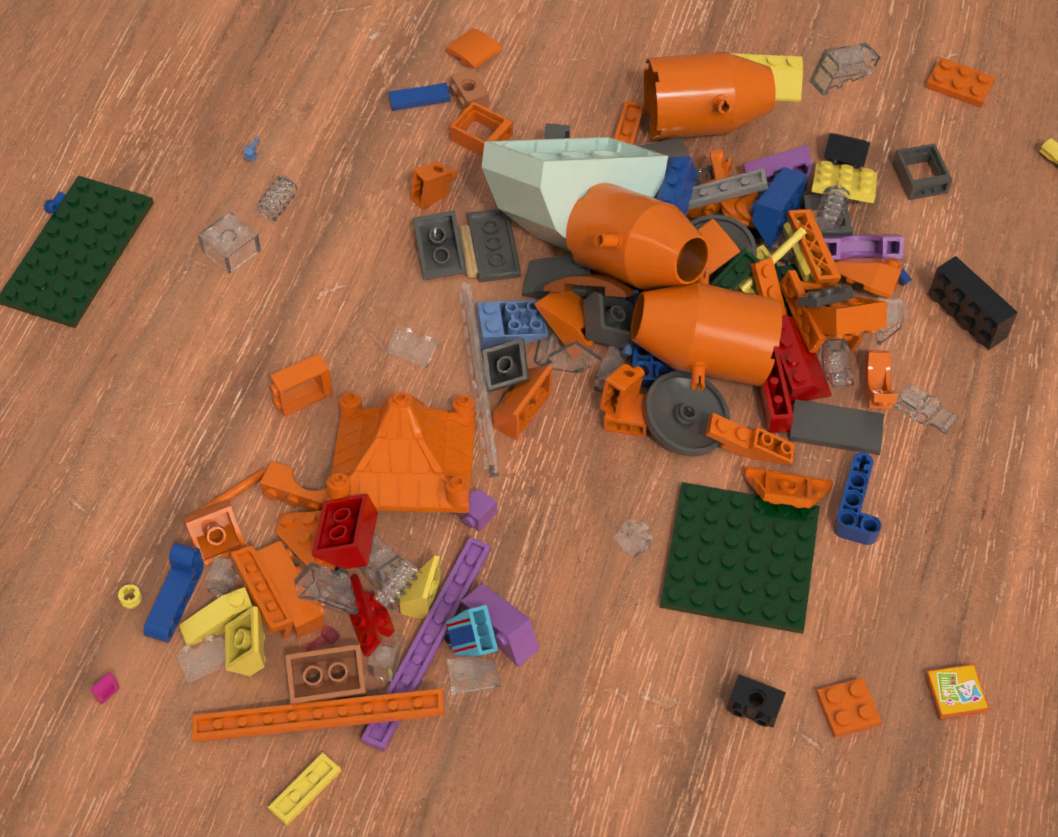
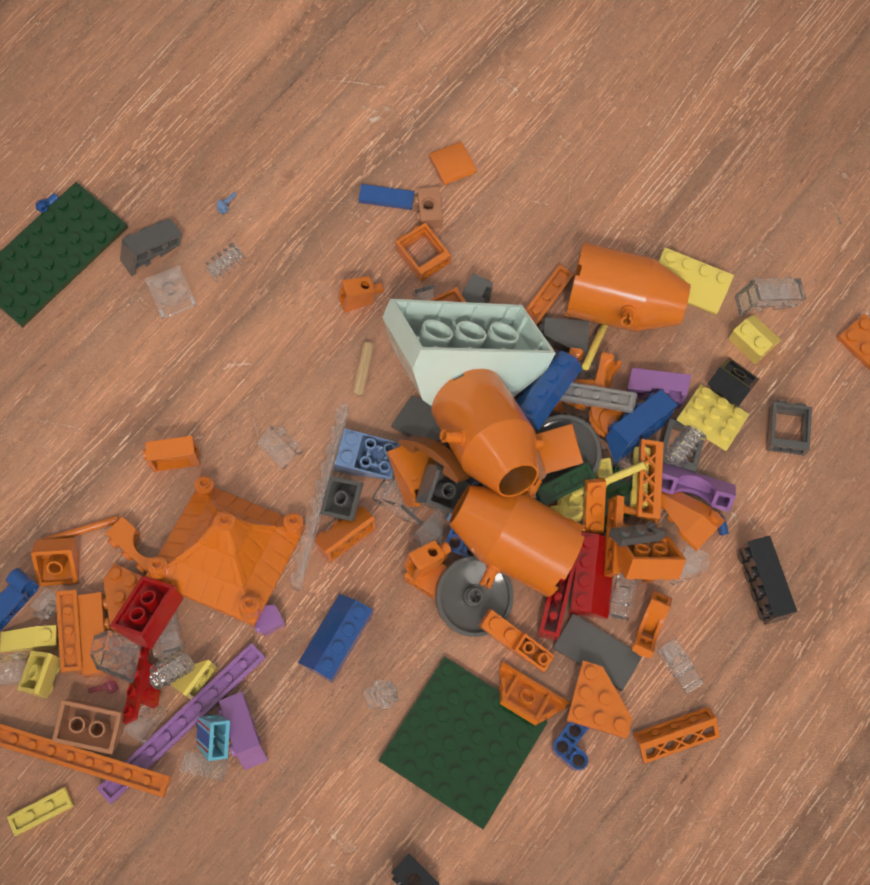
camera: 20 degrees right, 15 degrees up
(185, 206) = (148, 243): none -> dark grey wedge
(439, 245) = (340, 356): dark grey slope -> none
(493, 245) = (384, 375): dark grey tile -> none
(558, 502) = (336, 637): none -> blue slope
(697, 154) = (594, 347): none -> light yellow bar
(847, 110) = (754, 338): none -> light yellow slope
(864, 465) = (598, 703): none -> orange plate
(955, 467) = (676, 730): none -> orange fence

